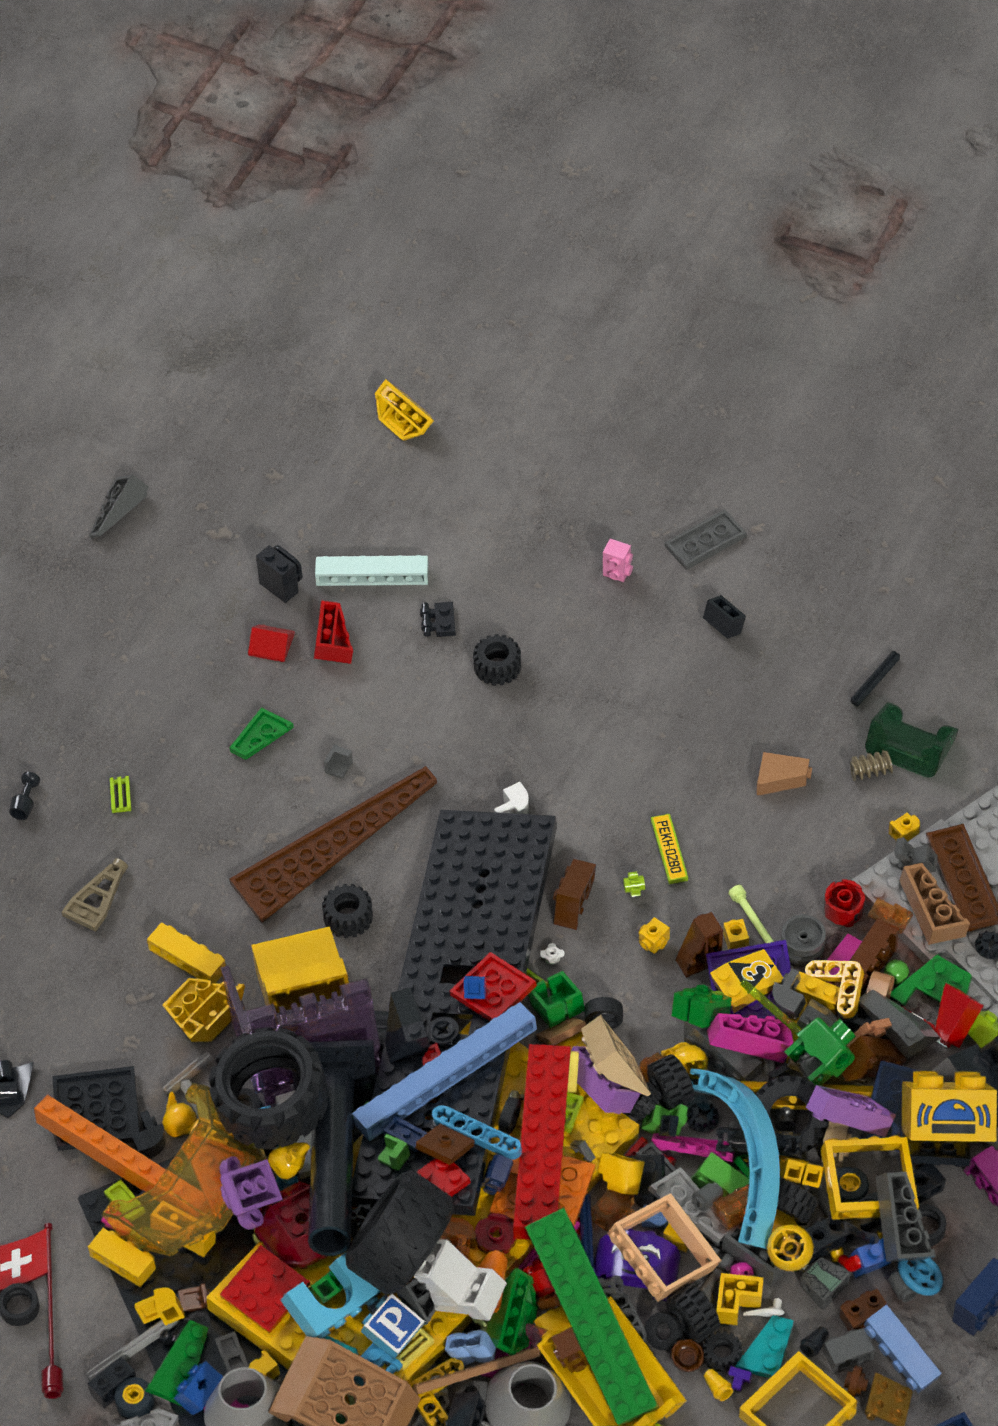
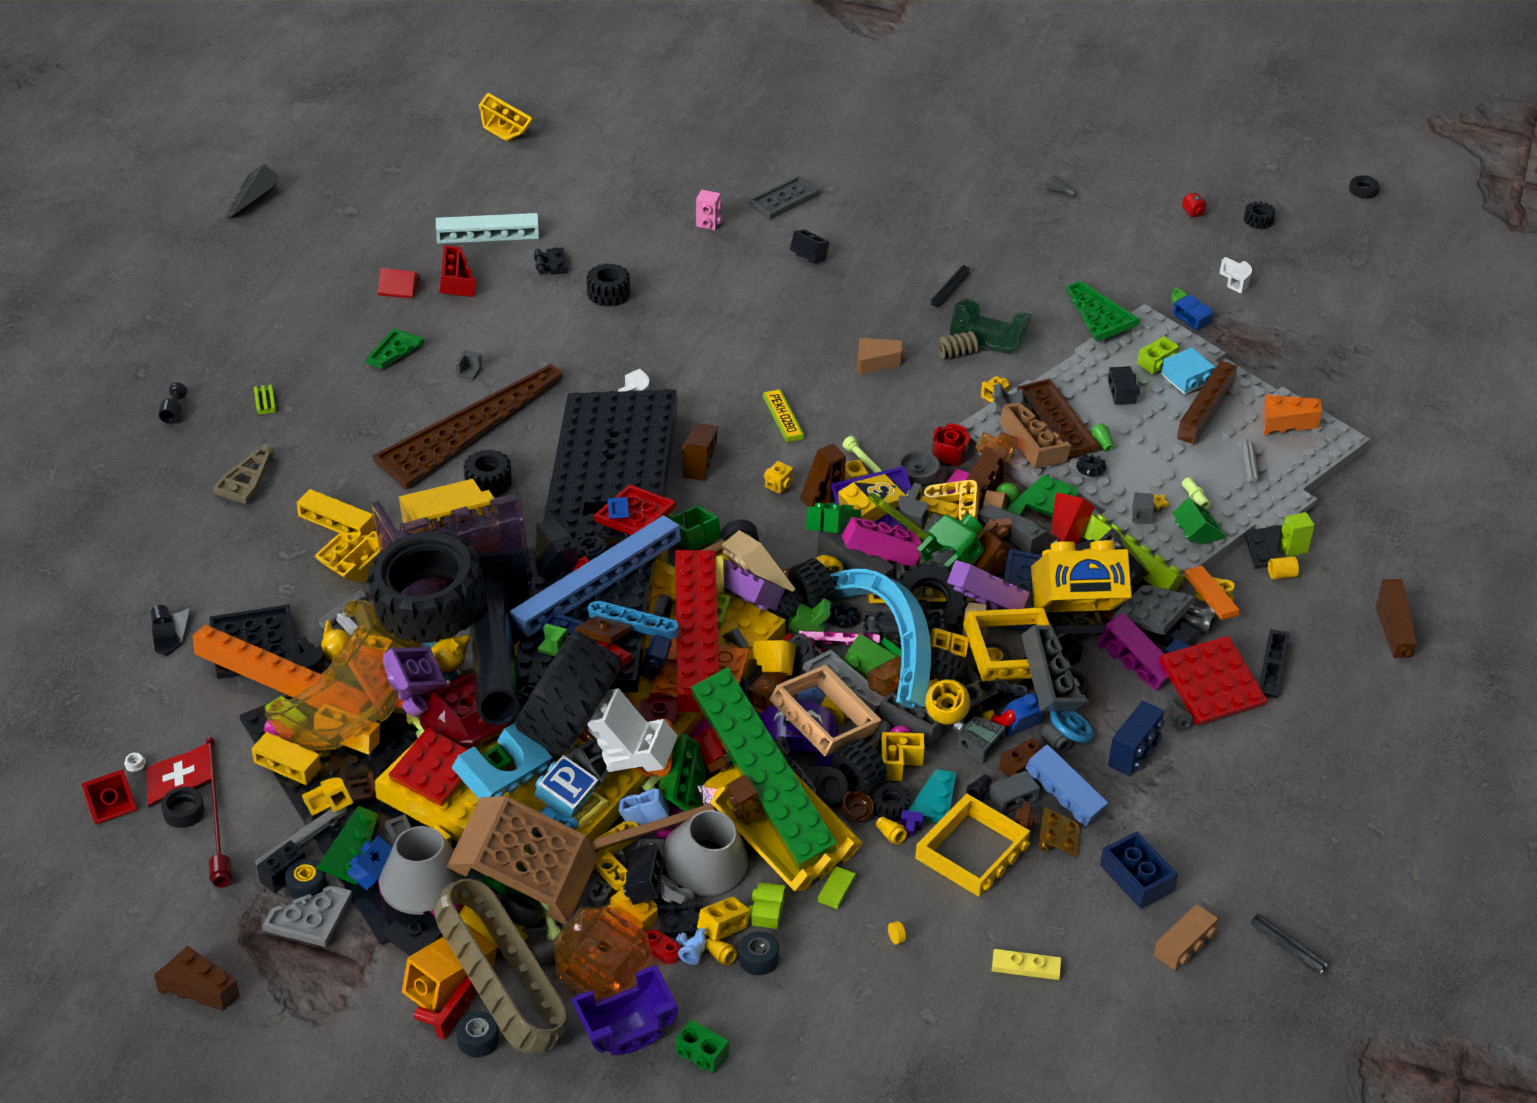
camera: 10 degrees left, 10 degrees down
(279, 572) = (402, 228): black brick -> none
(549, 958) = (684, 499): white plate -> none
(634, 884) = (754, 440): lime gear -> none
(668, 1125) = (814, 618): black tile -> none
(705, 1196) = (858, 669): dark grey brick -> none
(769, 1311) = (928, 767): white bar -> none

